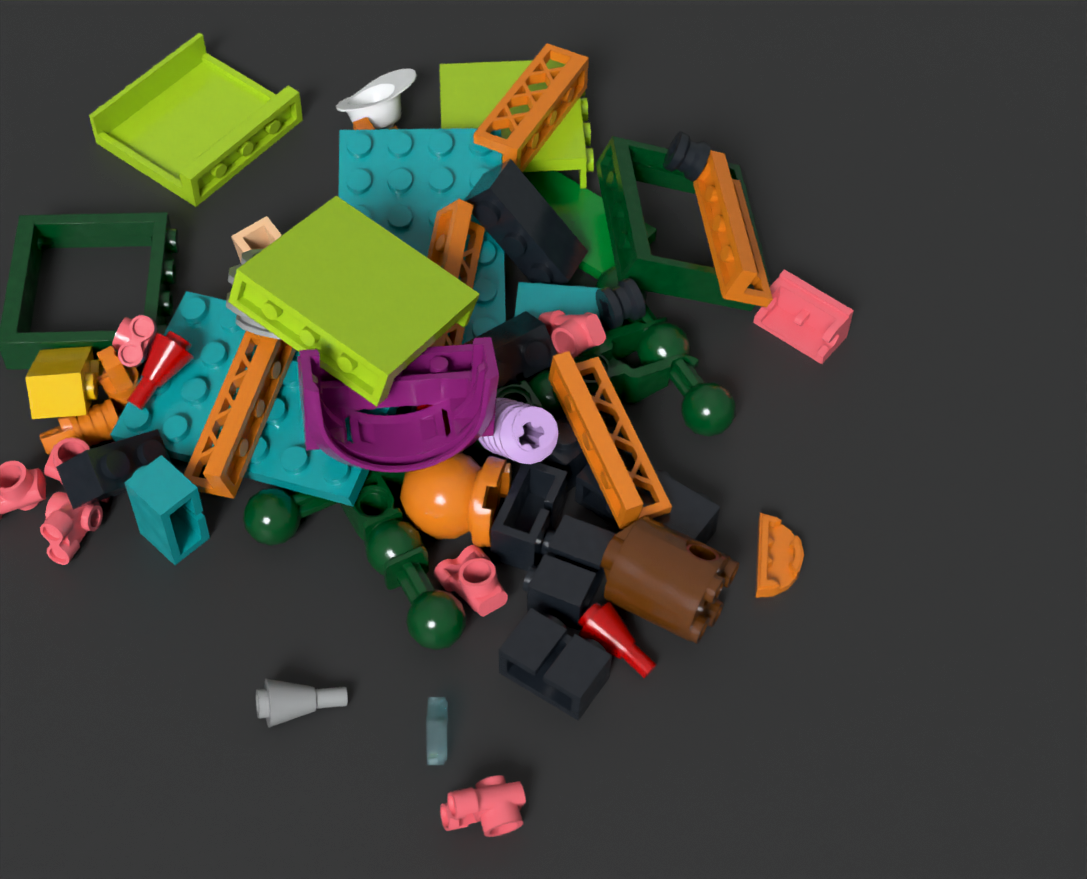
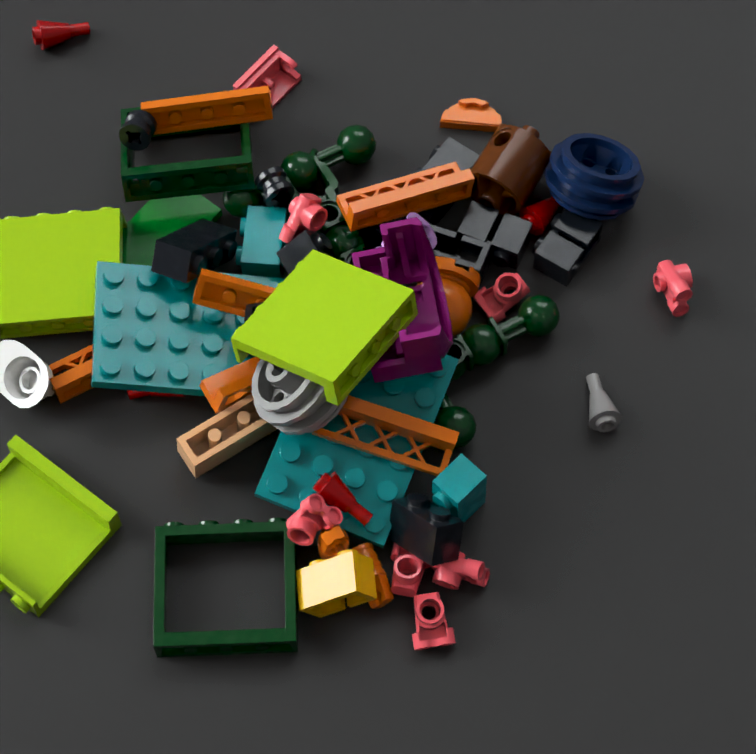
camera: 85 degrees left, 10 degrees up
(437, 730) = (618, 316): clear light blue tile -> none
(546, 106) = (76, 229): orange fence -> none
(630, 695) = (594, 176): none -> dark blue wheel
(853, 108) = (52, 33): none -> red cone

